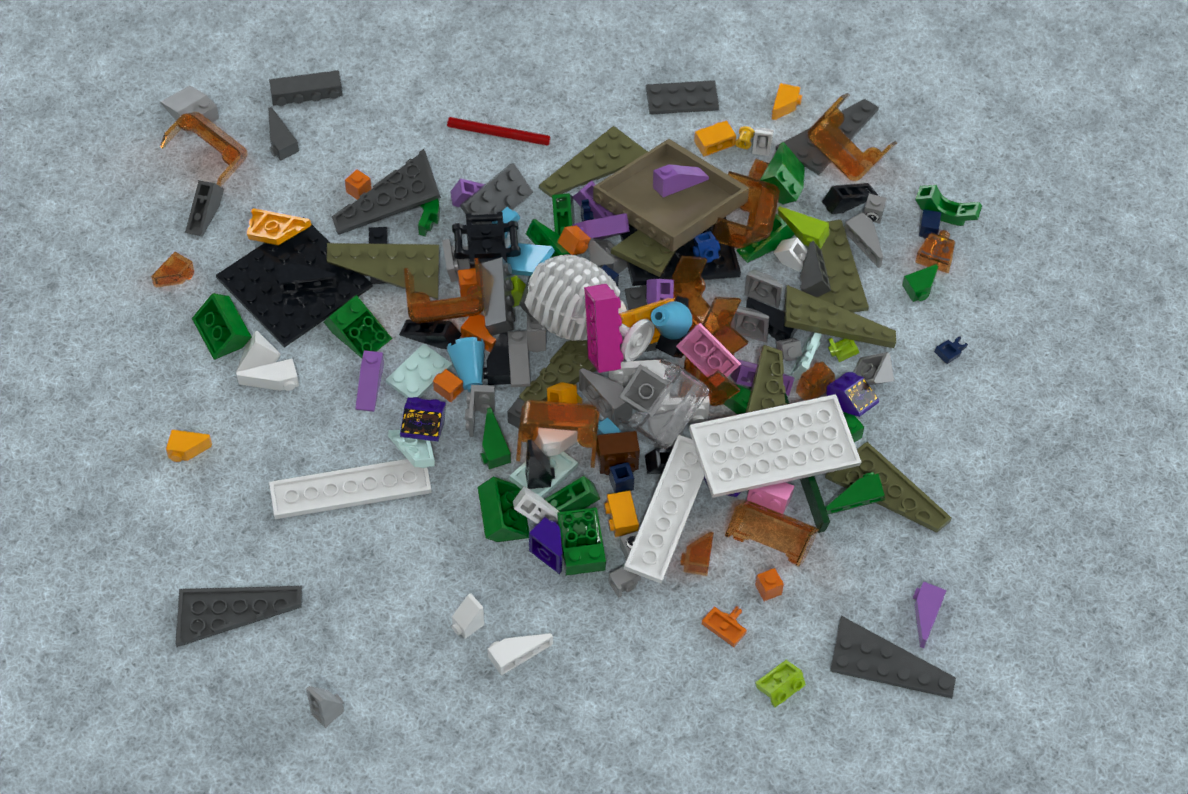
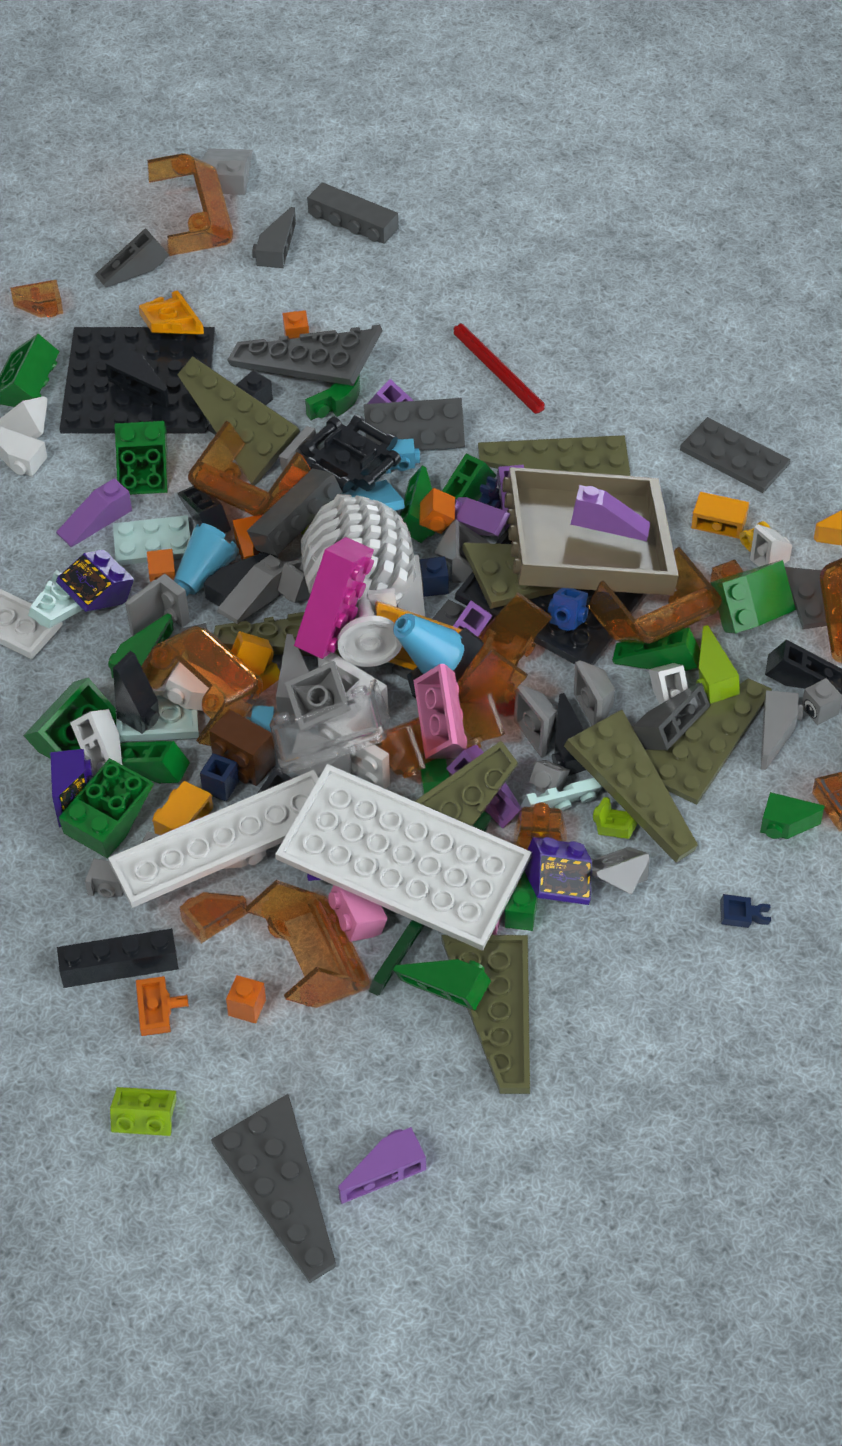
camera: 45 degrees right, 5 degrees down
(680, 616) = (117, 958): none -> black brick

